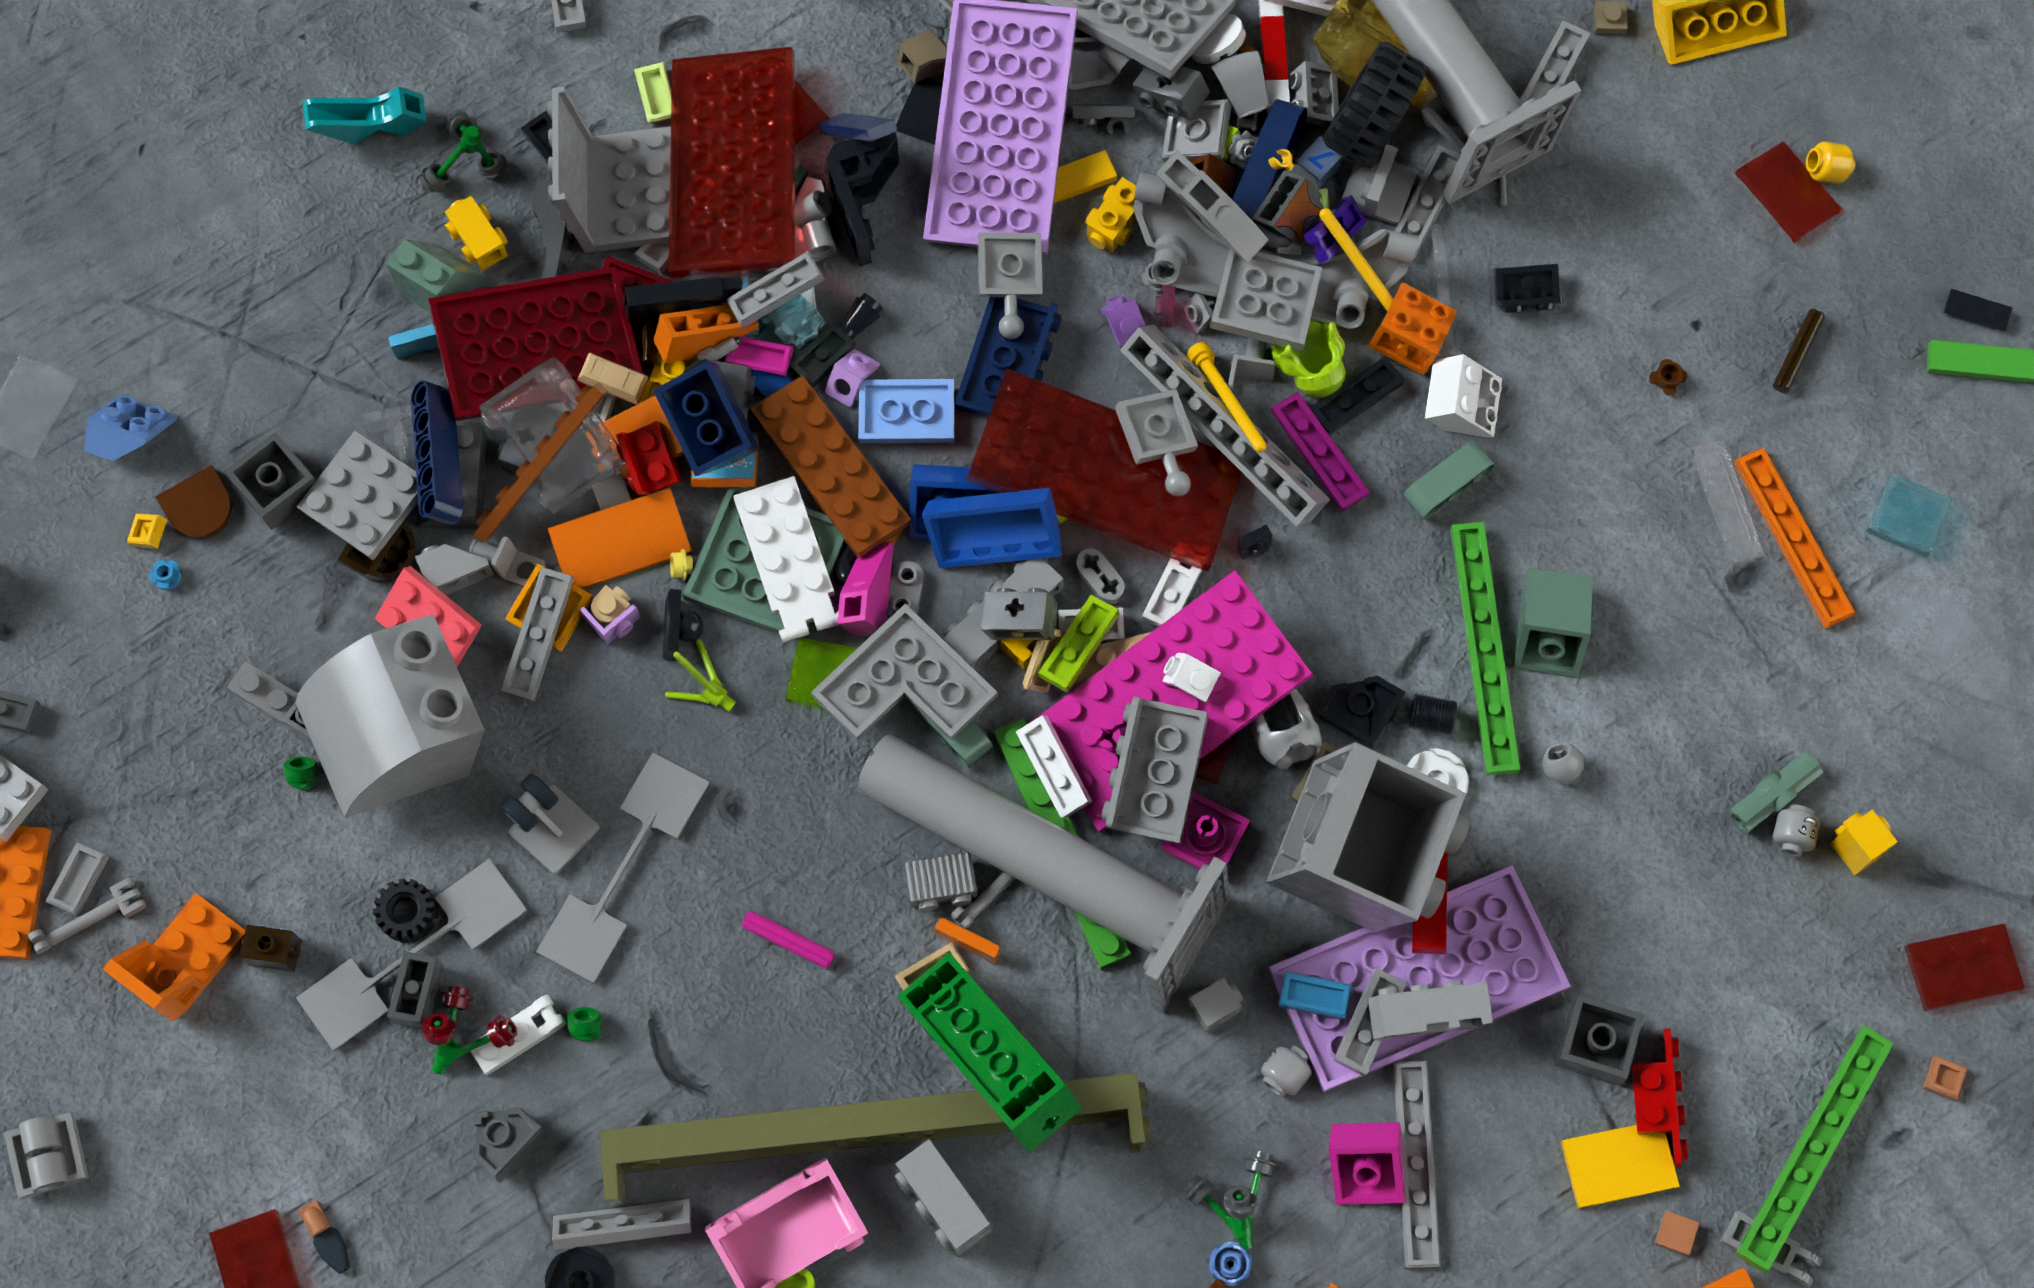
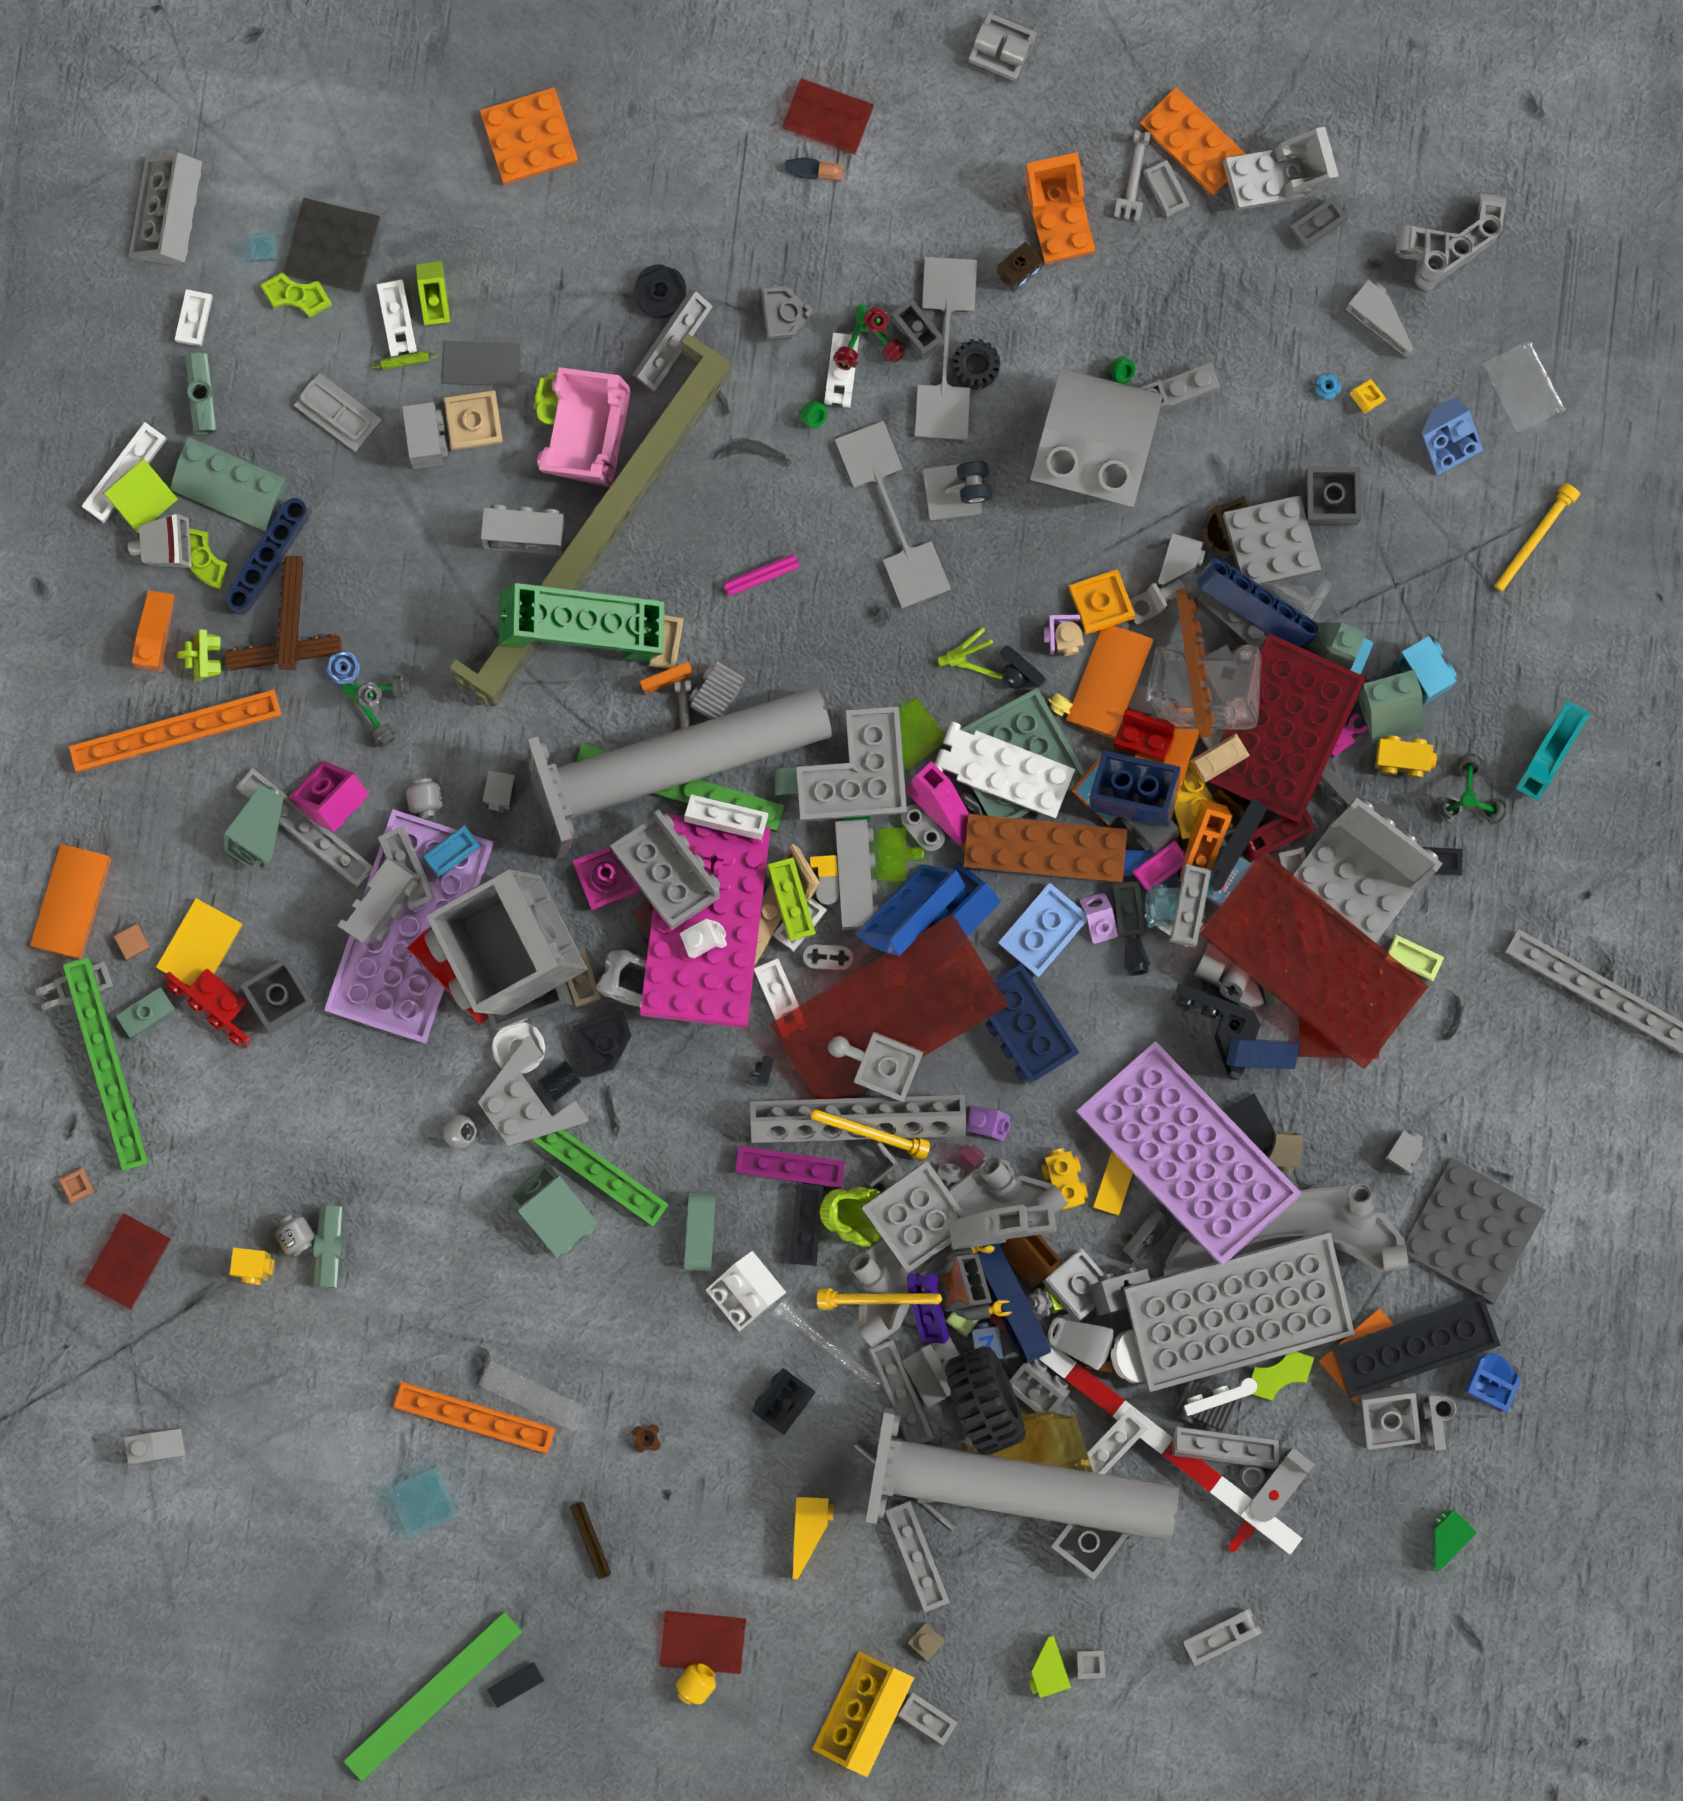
camera: 125 degrees right, 10 degrees up
(54, 581) = (1377, 312): none -> light grey slope
(107, 289) = (1566, 496): none -> yellow piece
(197, 505) = (1360, 441): reddish brown tile -> none
(367, 274) = (1431, 670): none -> medium azure brick
(416, 355) = (1337, 643): none -> sand green slope
(416, 598) = (1153, 518): coral plate -> none
(537, 634) = (1086, 578): light grey plate -> none
(715, 353) = (1184, 835): light grey piece -> none
(951, 597) = (894, 854): none -> clear neon green plate
(1010, 269) = (1080, 1073): light grey plate -> none
(1019, 615) = (823, 877): brick -> none
(1413, 329) = (818, 1301): orange bracket -> none
(1463, 1199) = (255, 829): none -> sand green slope
(1494, 728) = (516, 1107): none -> light grey wing
(1614, 178) = (810, 1524): none -> yellow slope
(1729, 1159) = (145, 1012): none -> sand green plate

